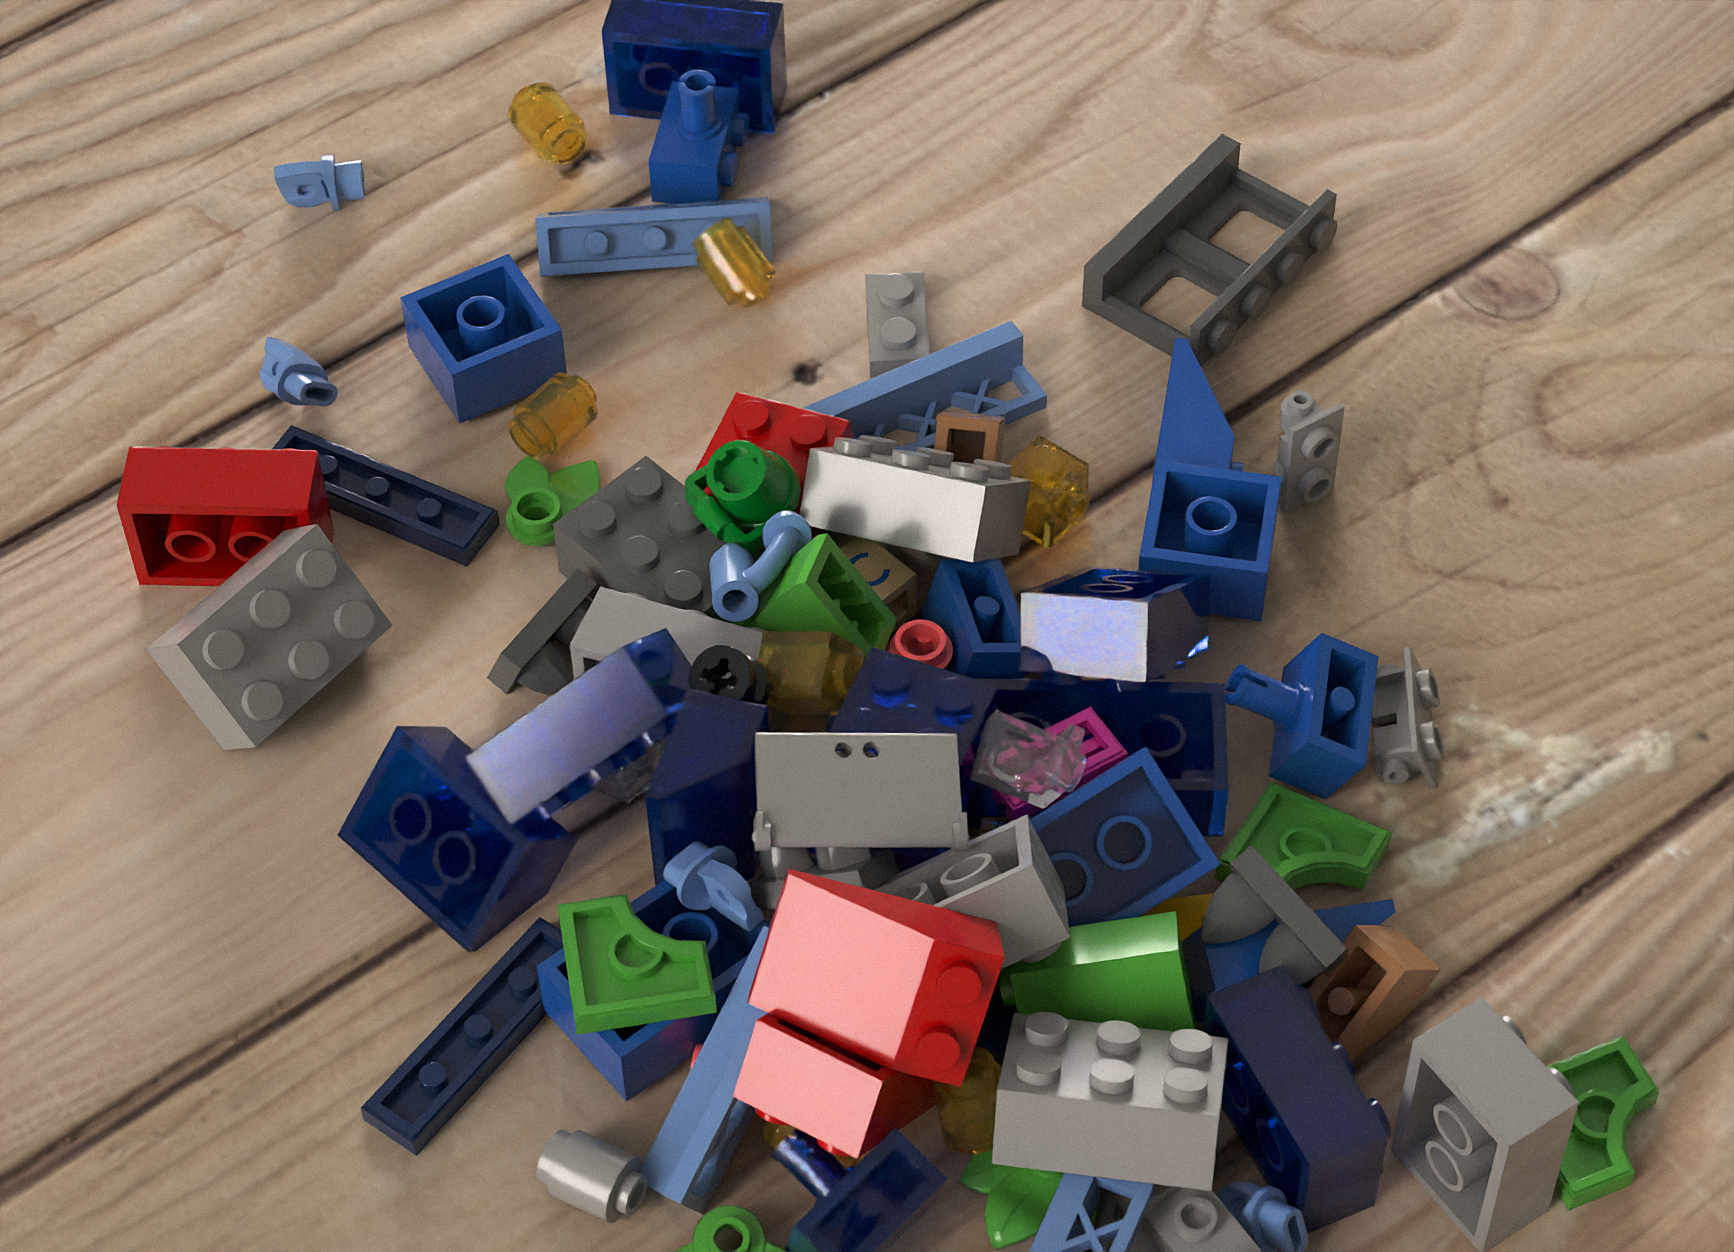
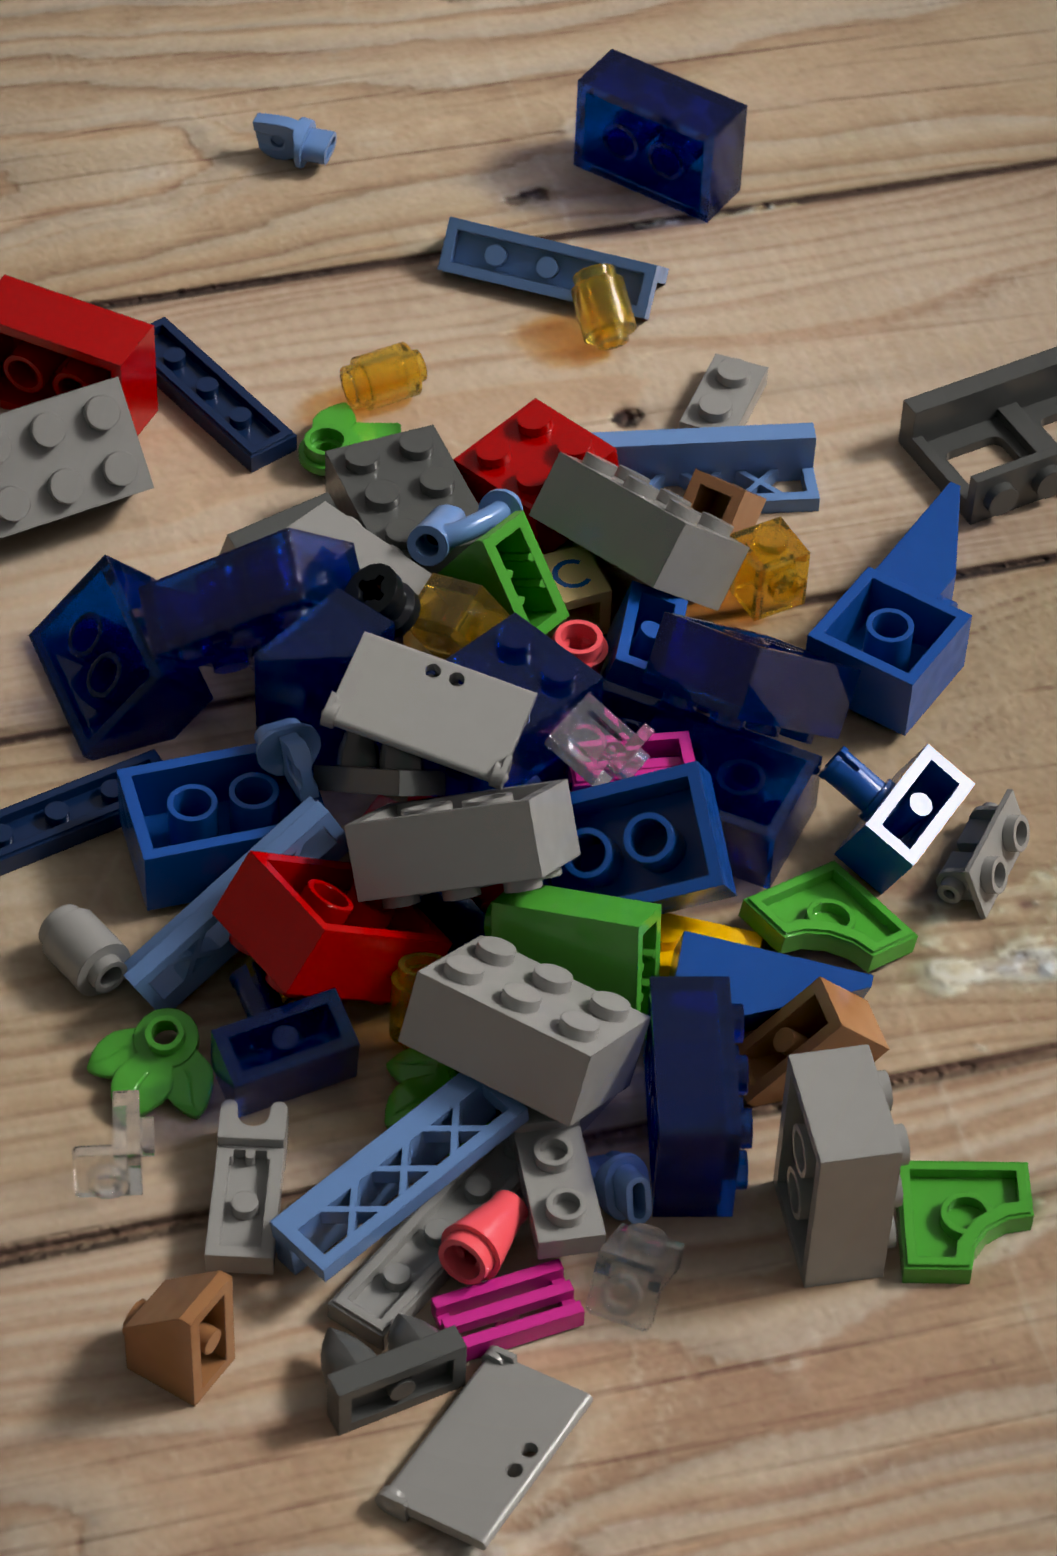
camera: 20 degrees right, 5 degrees down
(295, 375) = (188, 280): medium blue piece -> none
(483, 337) = (354, 294): blue brick -> none
(547, 123) = (510, 151): clear yellow brick -> none
(626, 971) = (185, 796): bright green tile -> none
(697, 141) = (628, 202): blue brick -> none
(749, 488) = (490, 460): green piece -> none
(879, 974) = (366, 848): slope -> none
(1256, 897) = (739, 920): dark grey tile -> none
(1307, 449) = (1014, 607): light grey hinge -> none

